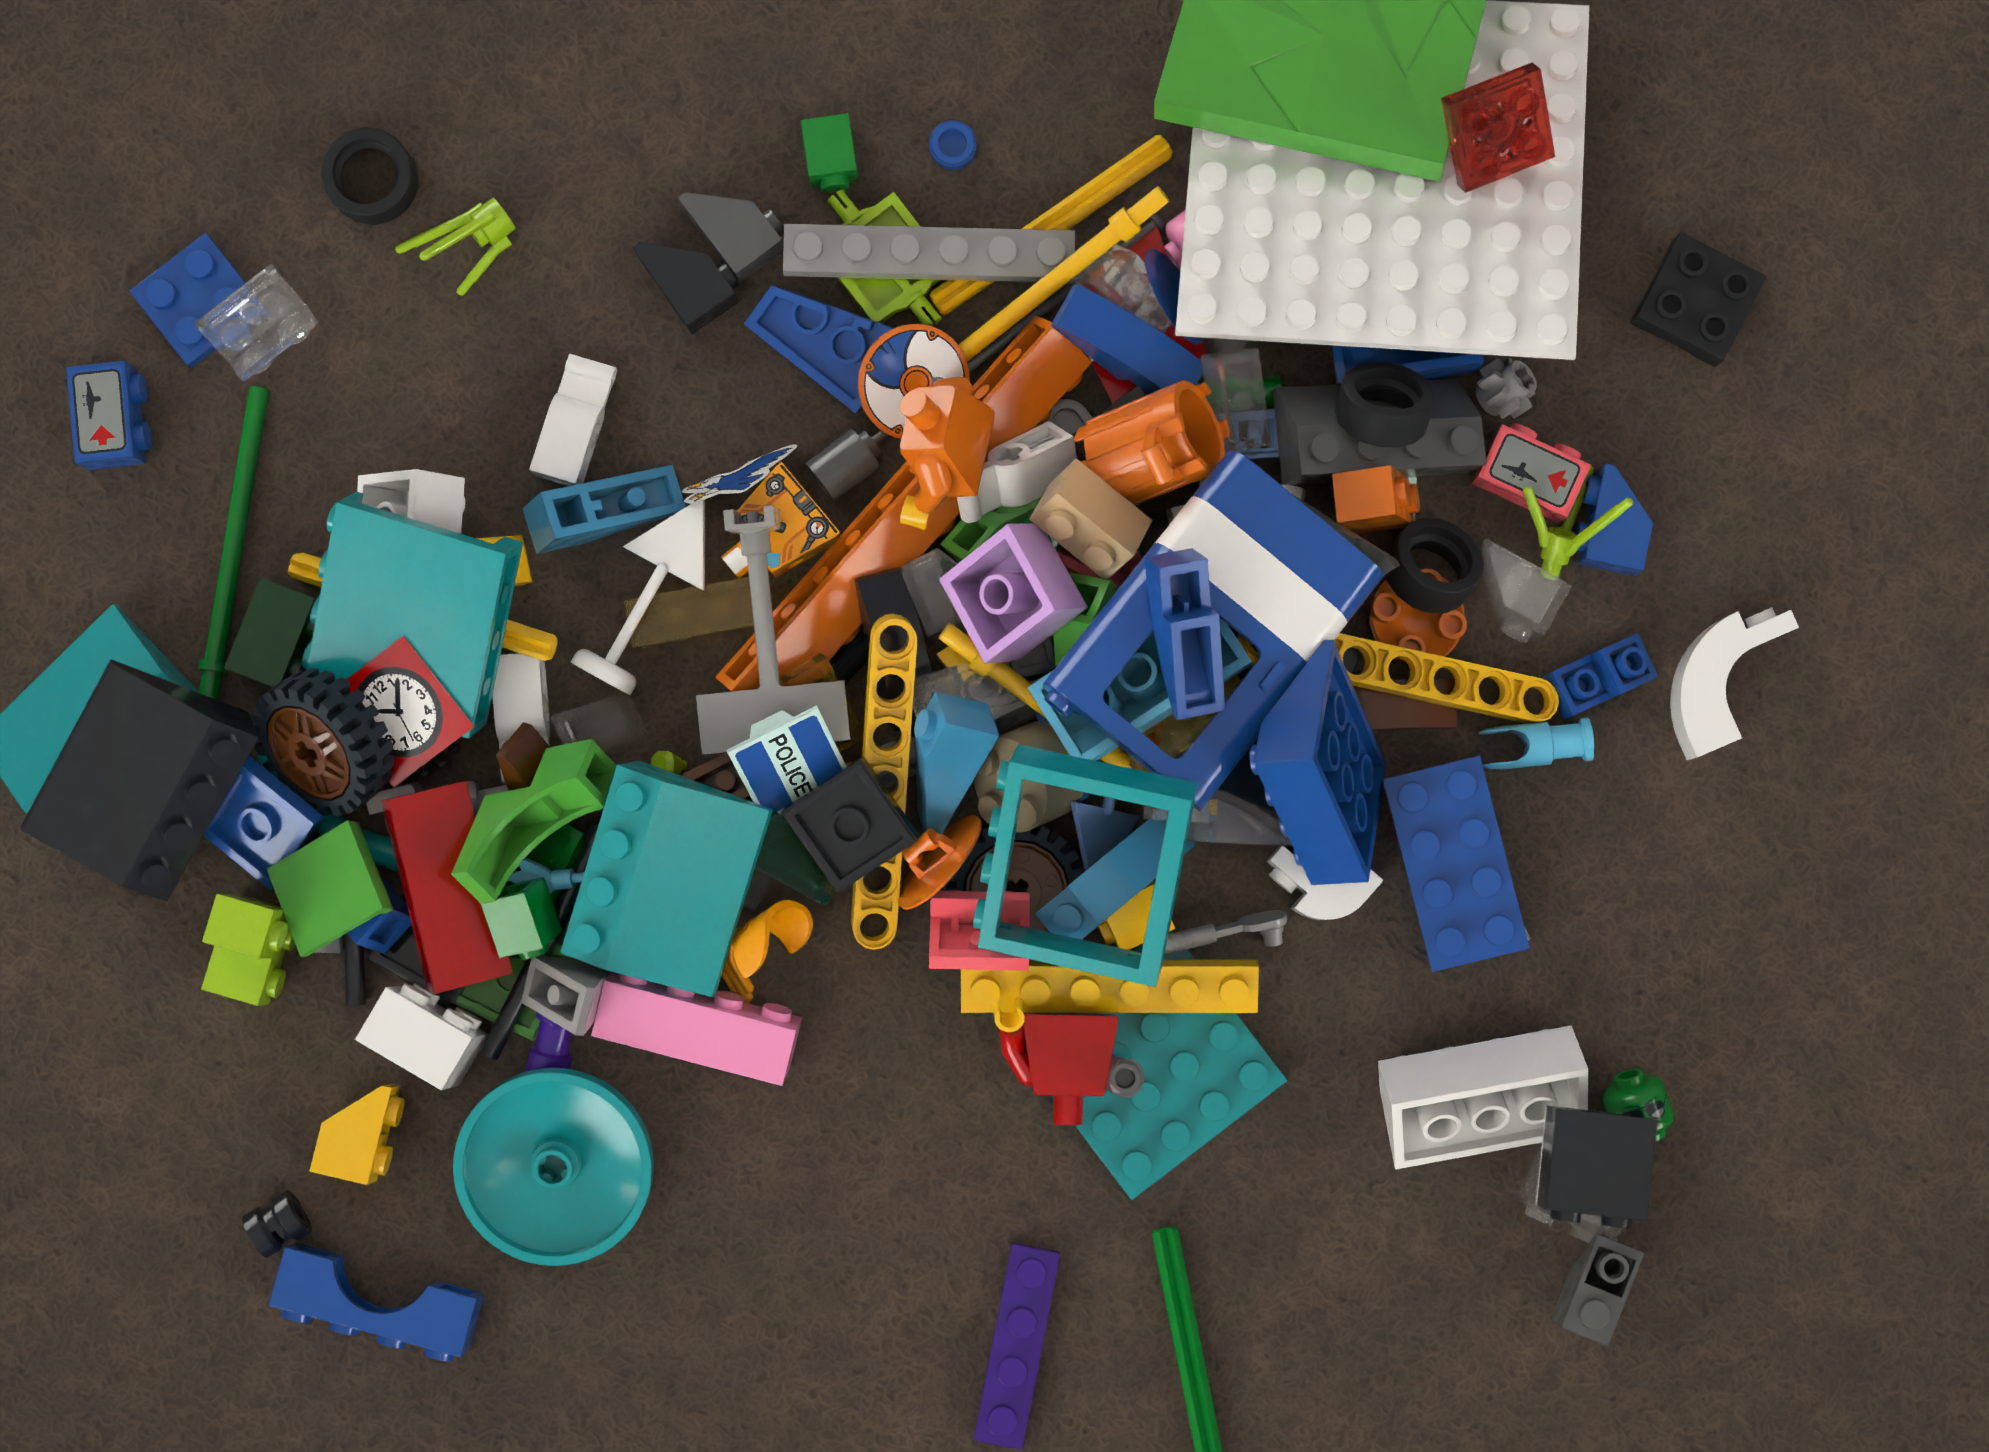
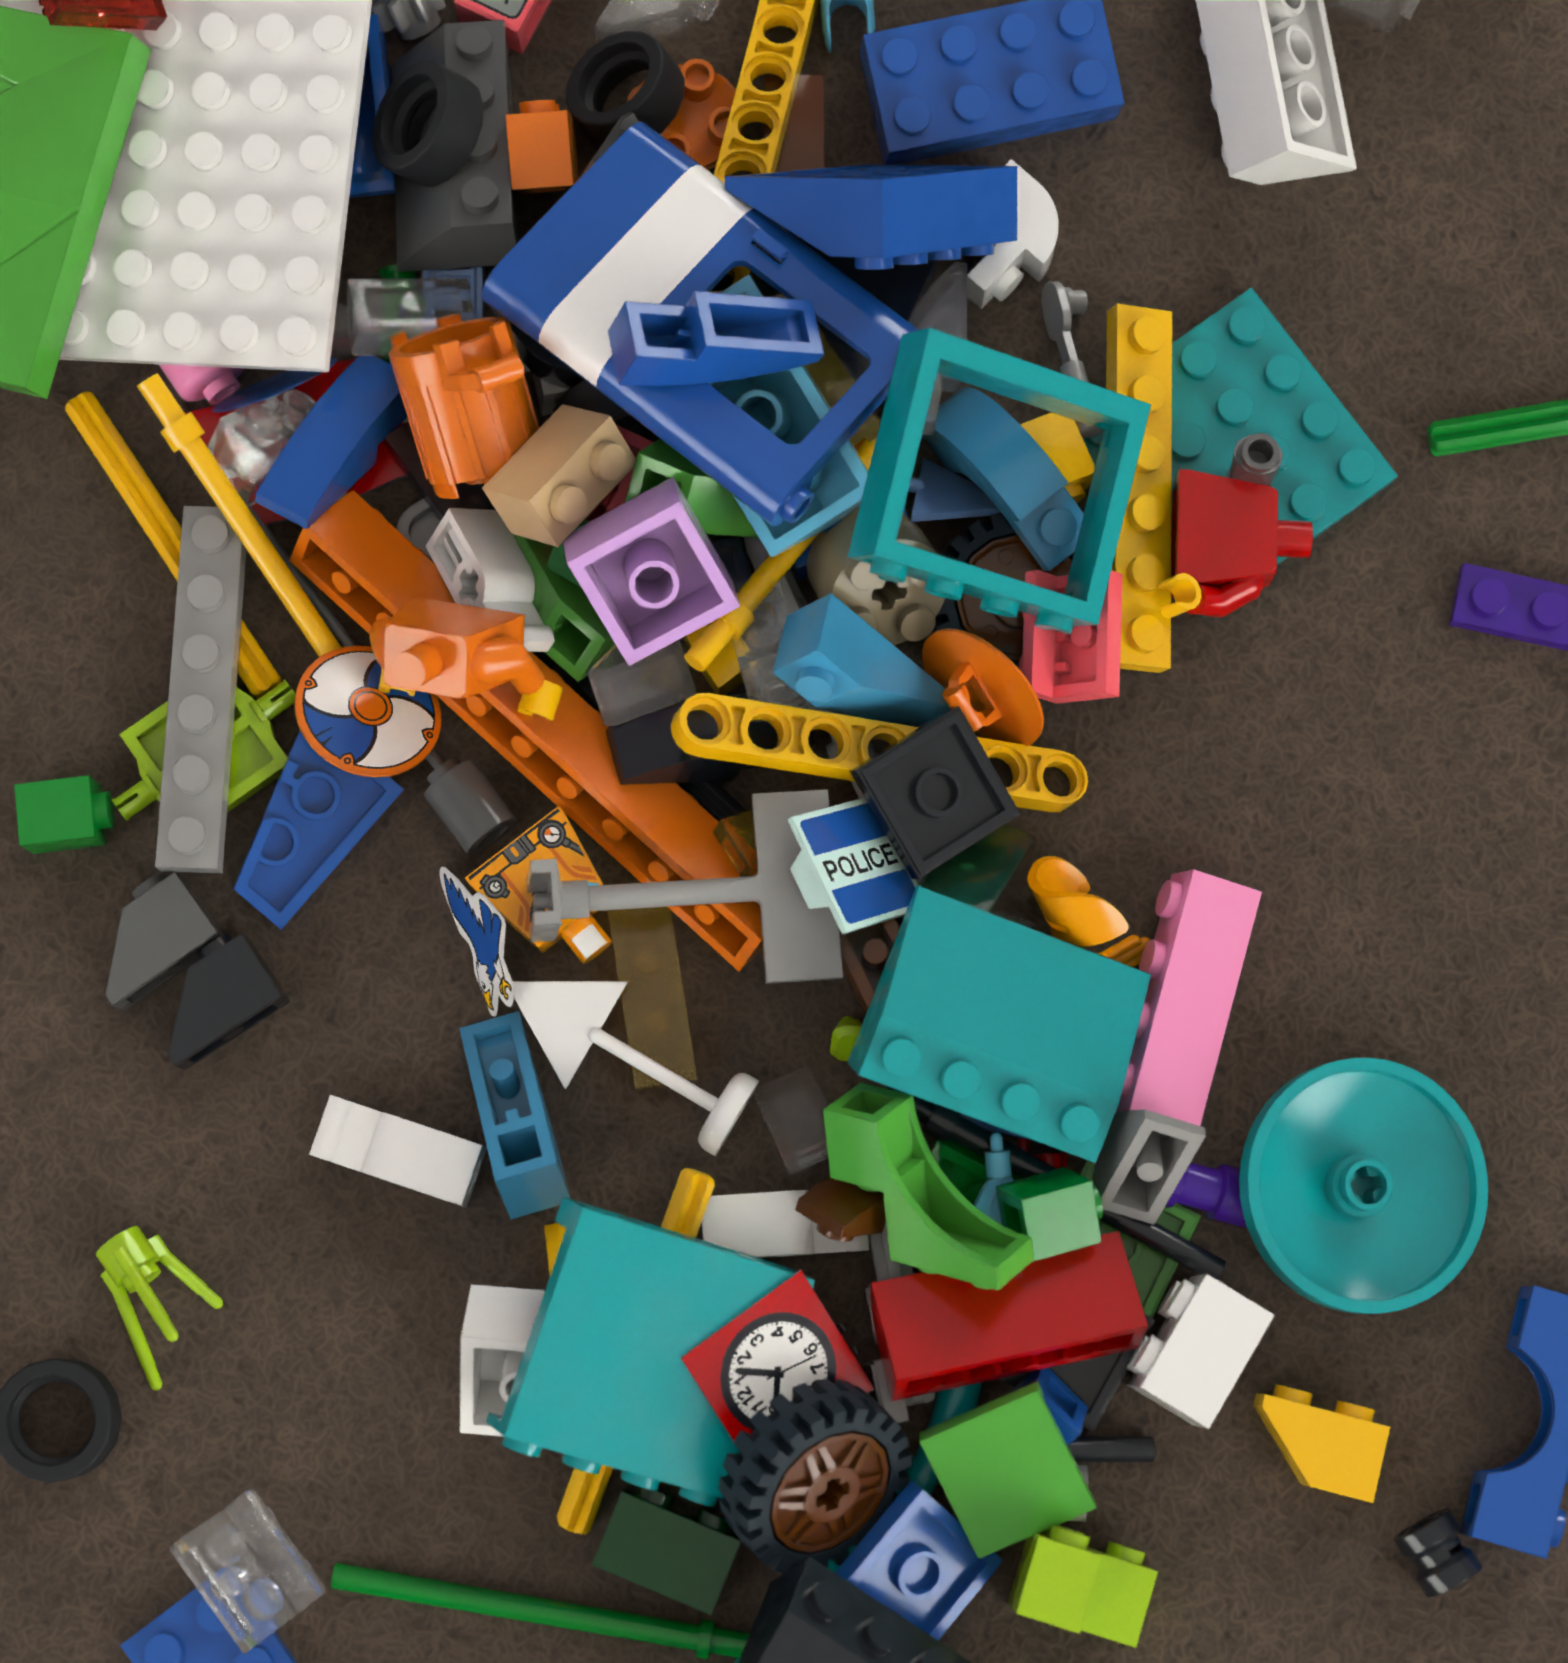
camera: 90 degrees left, 5 degrees down
(952, 145) = (62, 664): blue tile -> none

